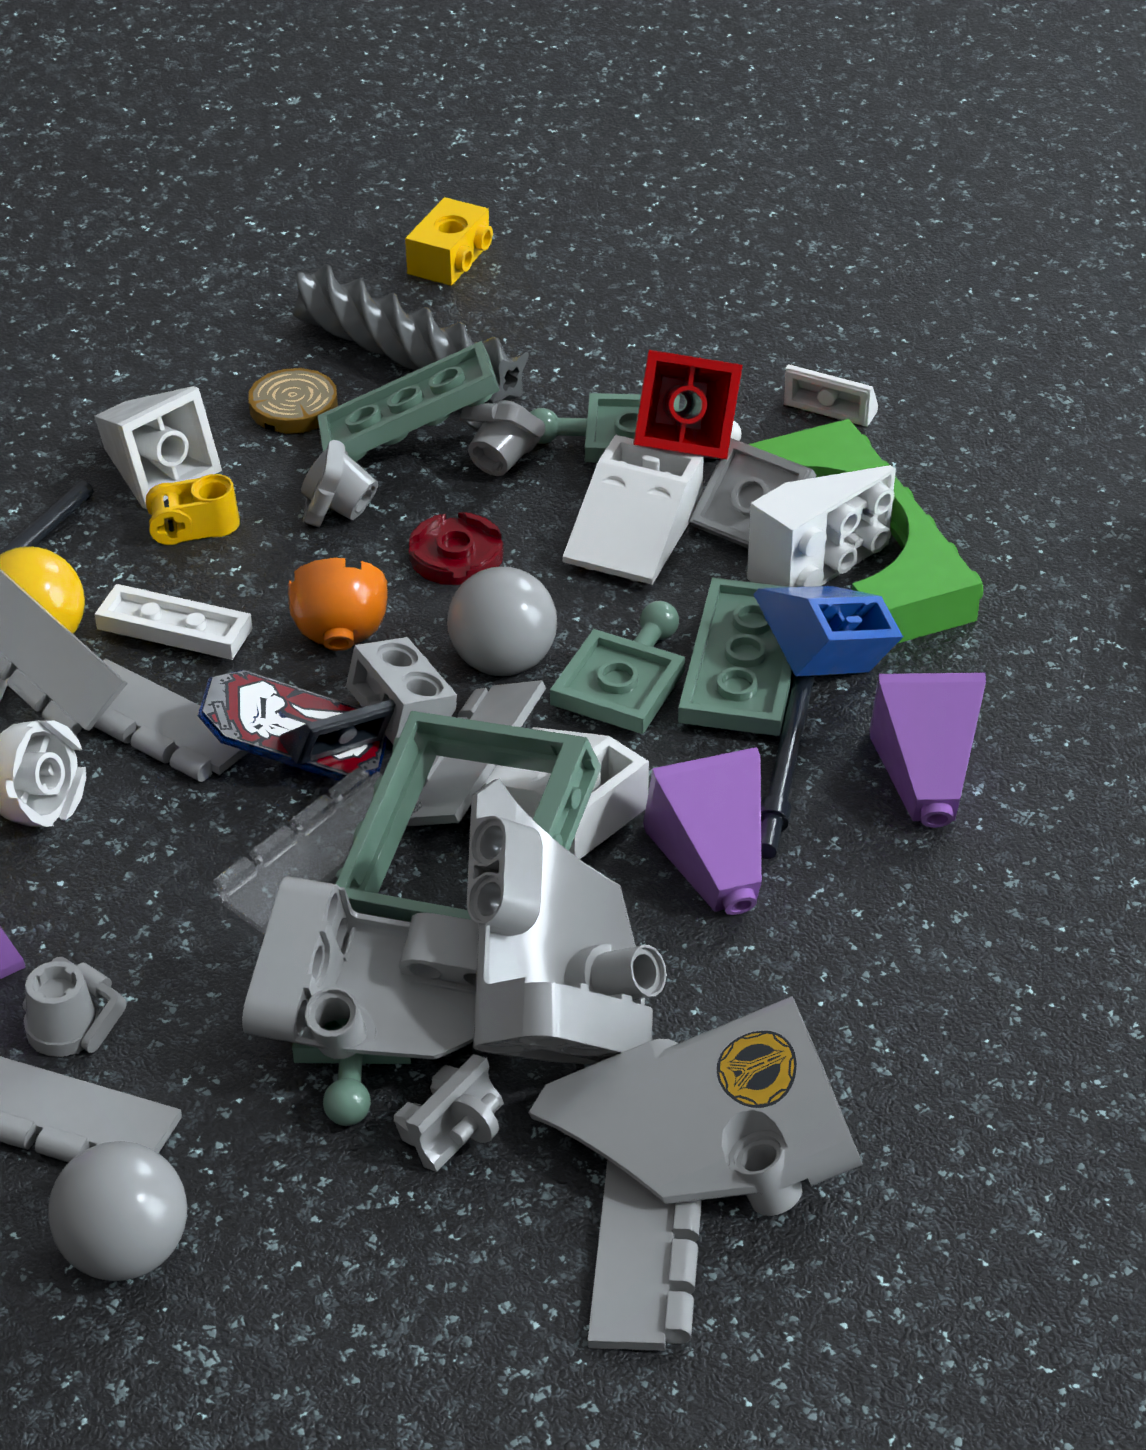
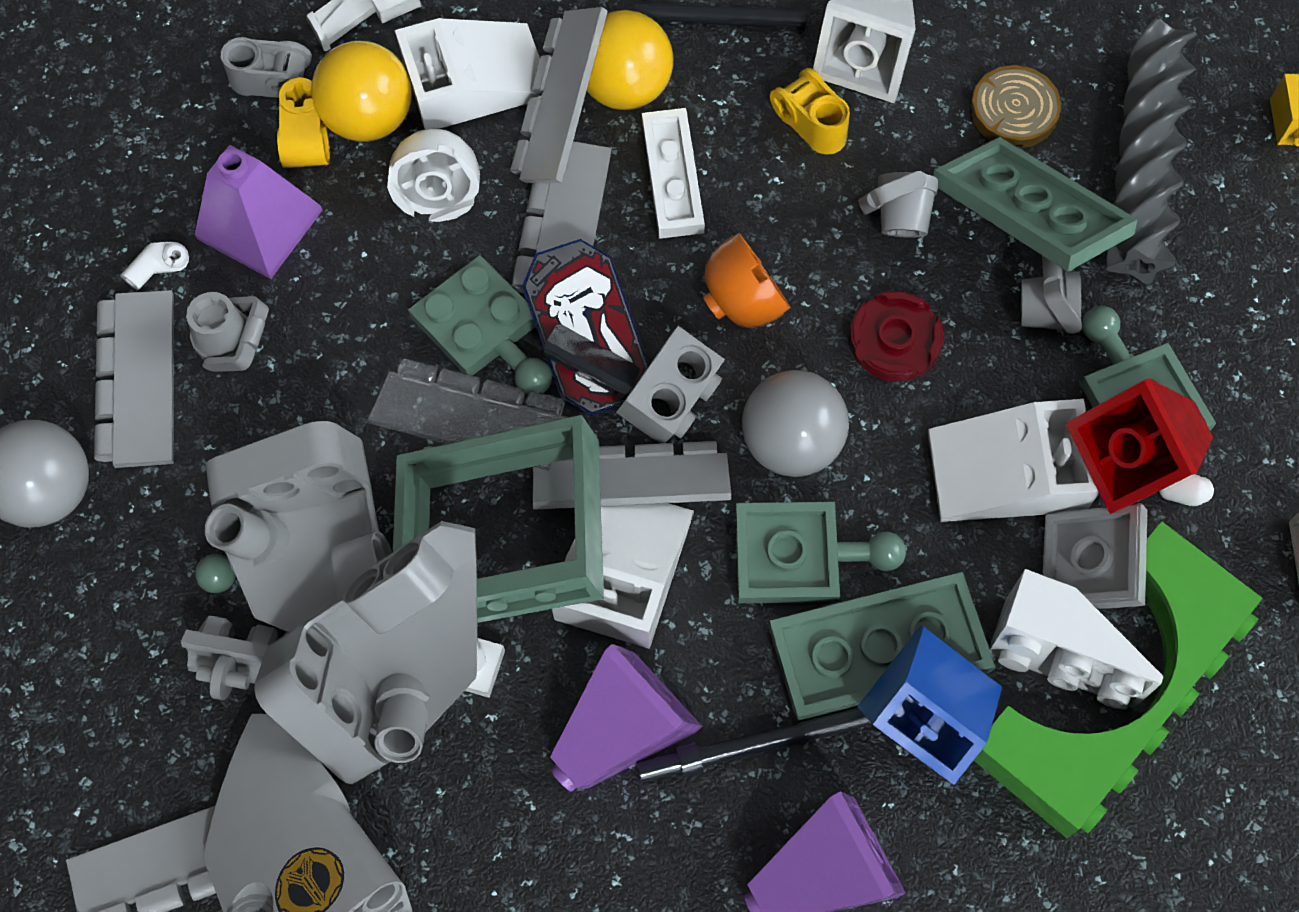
camera: 65 degrees right, 25 degrees up
(222, 810) = (479, 318): none -> sand green plate

